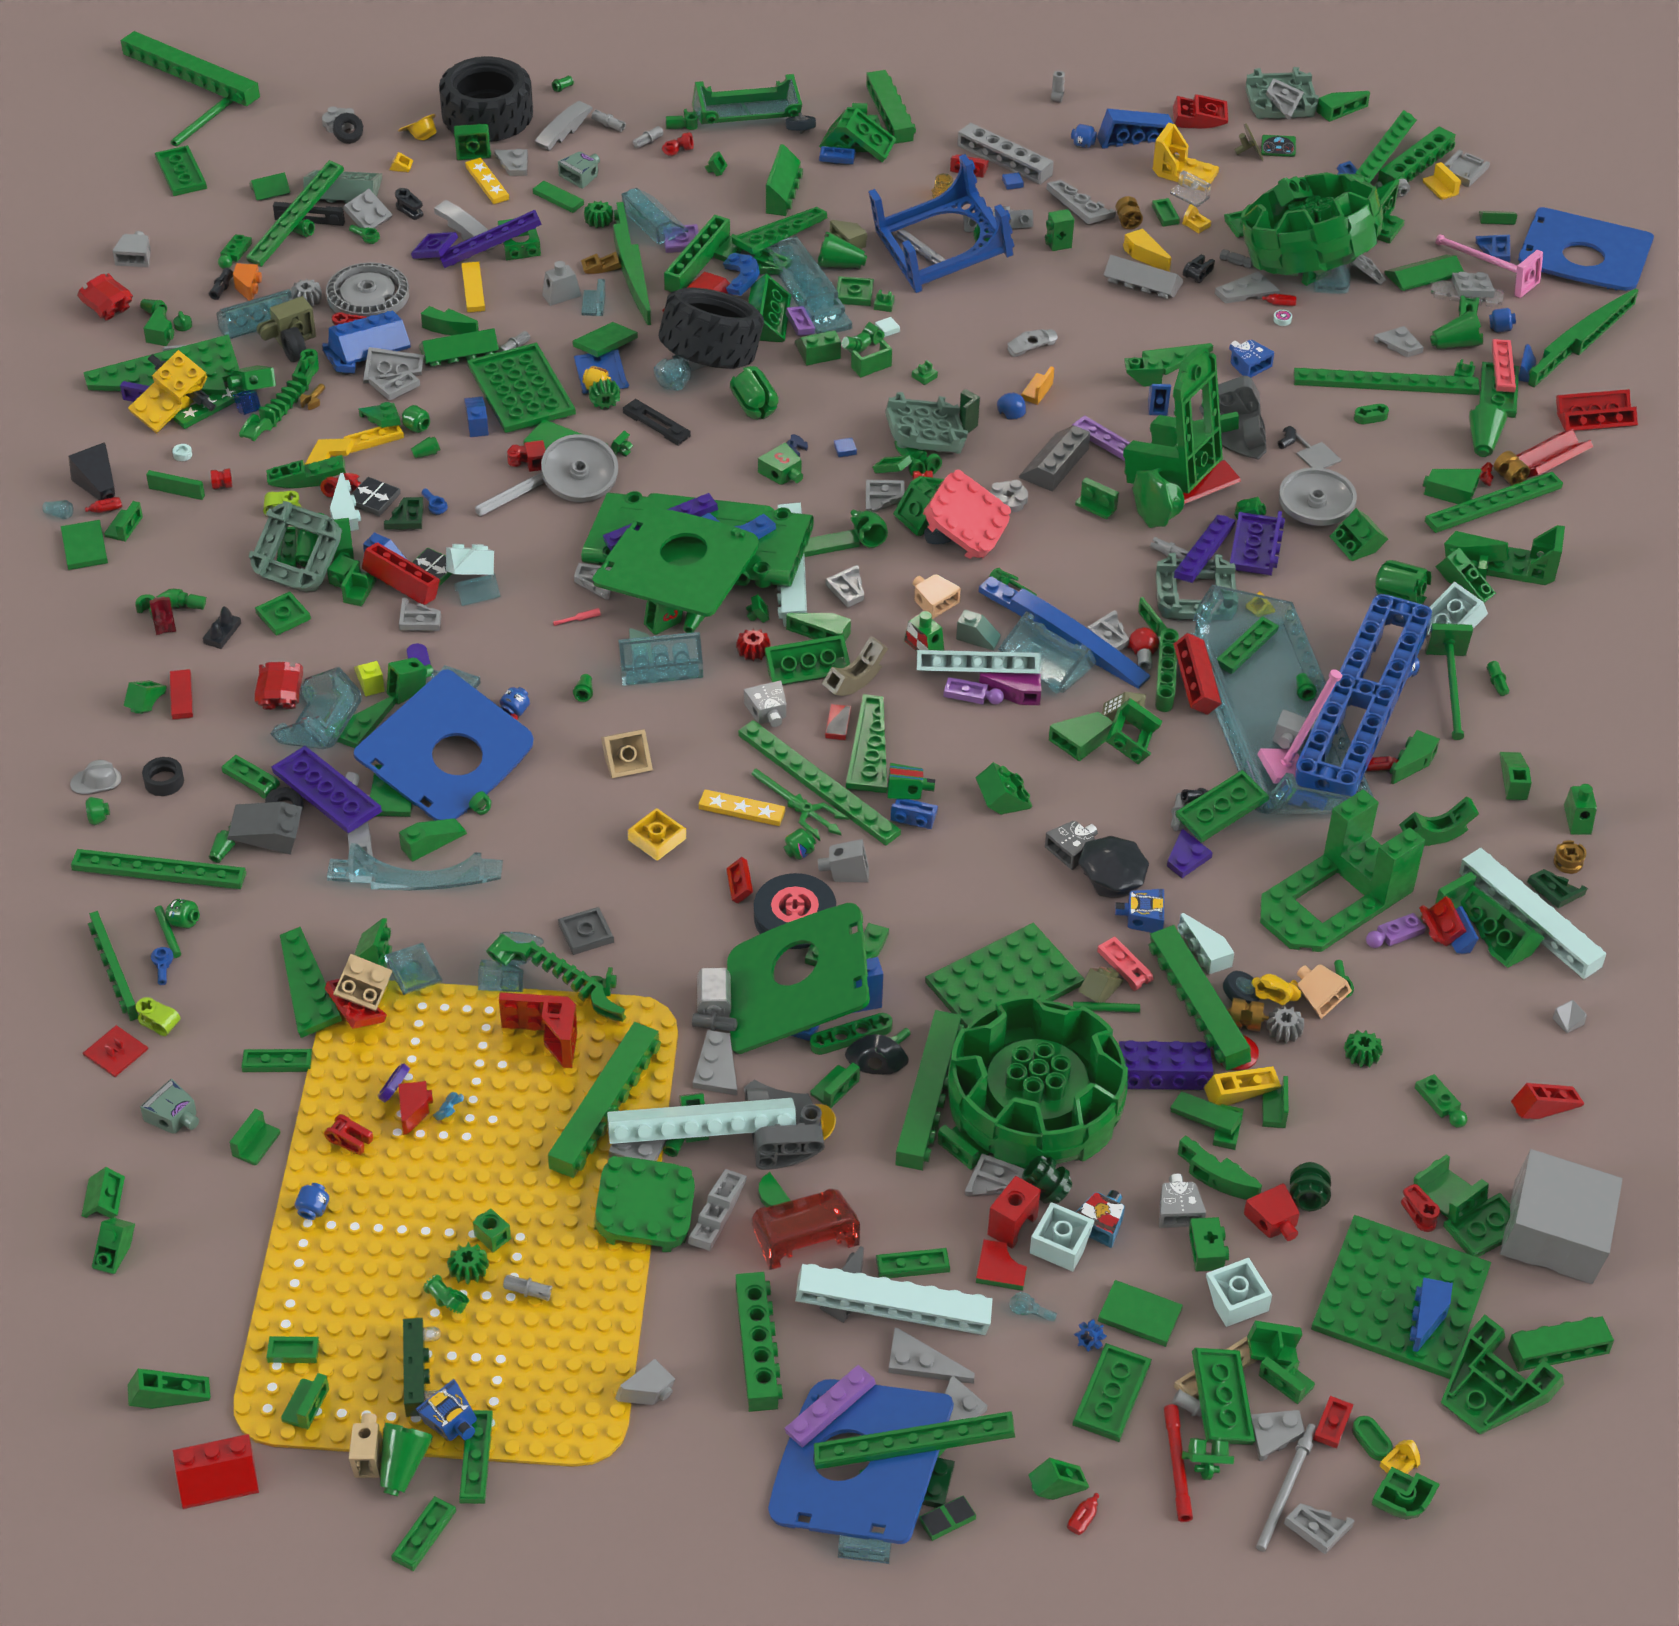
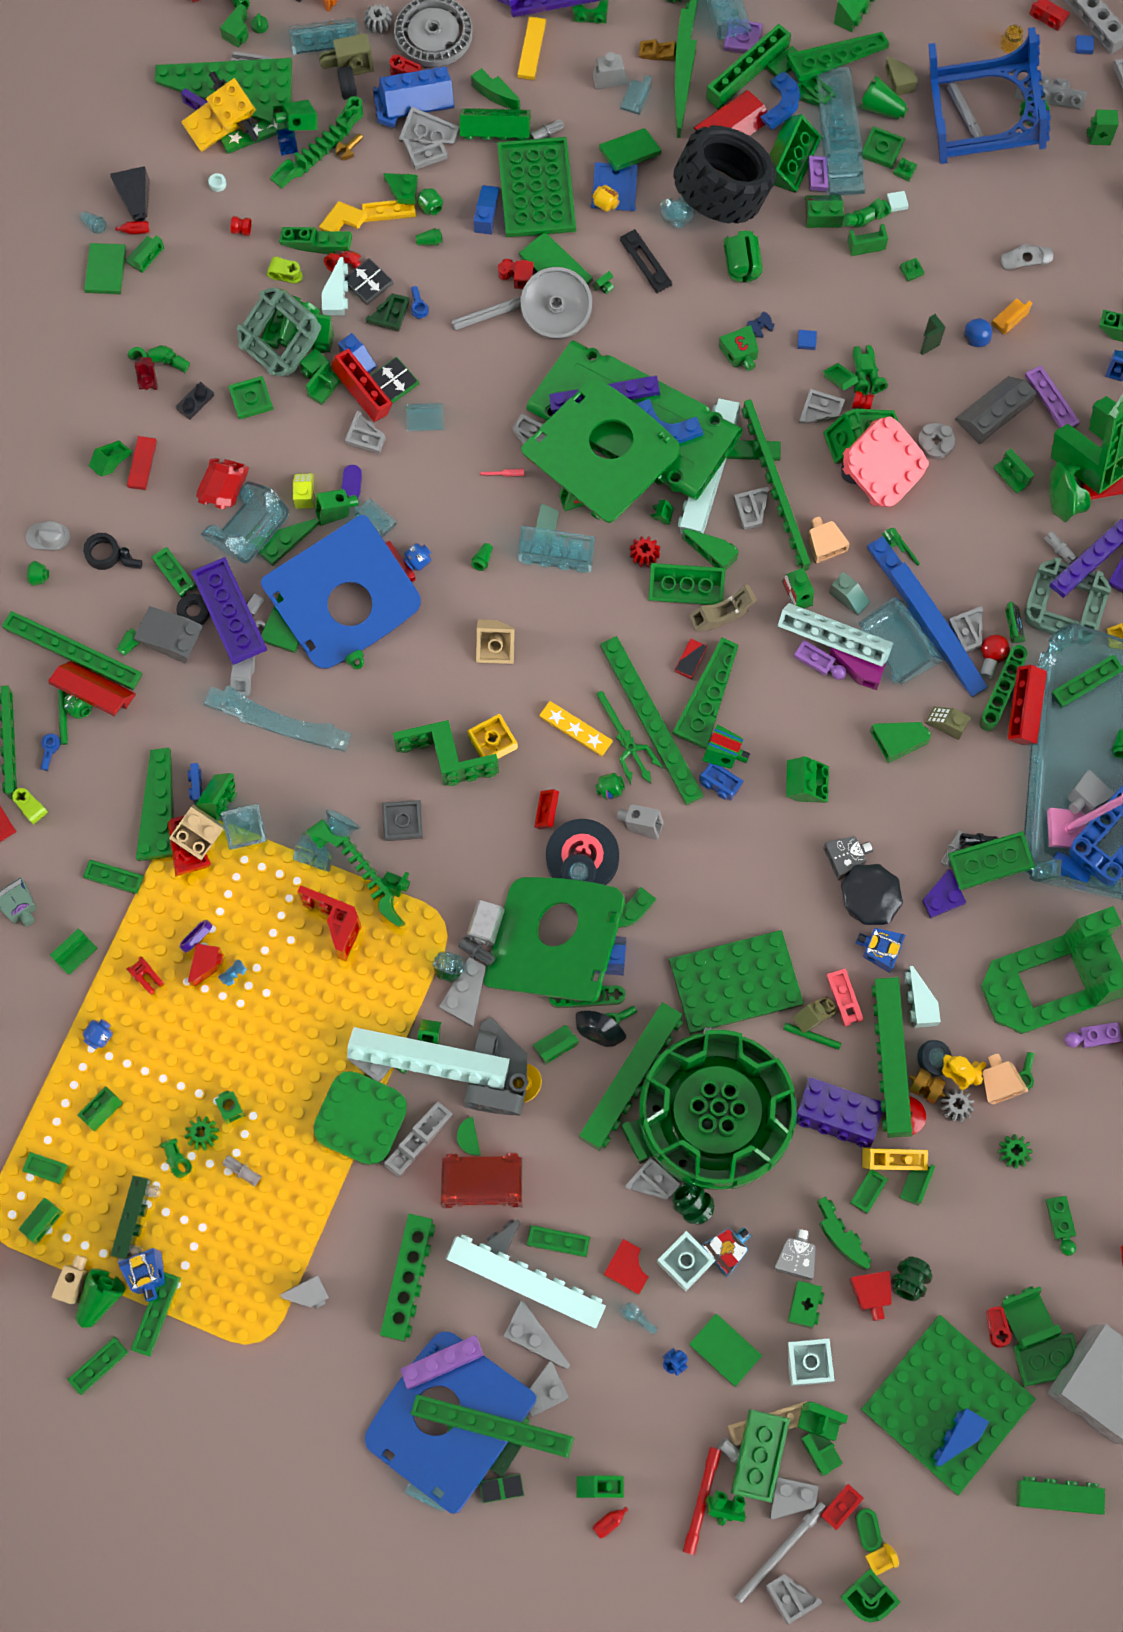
camera: 20 degrees right, 25 degrees up
(175, 485) = (199, 222): green tile -> none
(193, 892) = (91, 688): none -> red slope
(195, 779) = (127, 560): none -> black arm
(338, 1275) = (100, 1108): none -> green slope
(340, 946) = (194, 777): none -> blue plate
(429, 836) = (304, 682): green slope -> none
(472, 560) = (424, 390): light aqua slope -> none
(604, 393) = (607, 218): green gear -> none
(605, 1096) = (359, 1006): green brick -> none
(612, 853) = (450, 768): none -> green bracket
(688, 1041) = (448, 966): none -> clear light blue piece
(766, 703) = (634, 622): light grey torso -> none
(795, 908) = (579, 868): none -> black wheel
(863, 557) = (777, 492): none -> green plate
(869, 528) = (793, 446): green piece -> none
(925, 424) = (887, 338): sand green plate -> none
(1011, 1209) = (647, 1237): red piece -> none
(1112, 1392) = (674, 1416): green tile -> none
(1141, 719) = (957, 739): green panel -> none
(1206, 1113) = (854, 1174): green tile -> none
(1487, 1390) = (983, 1520): green wedge -> none

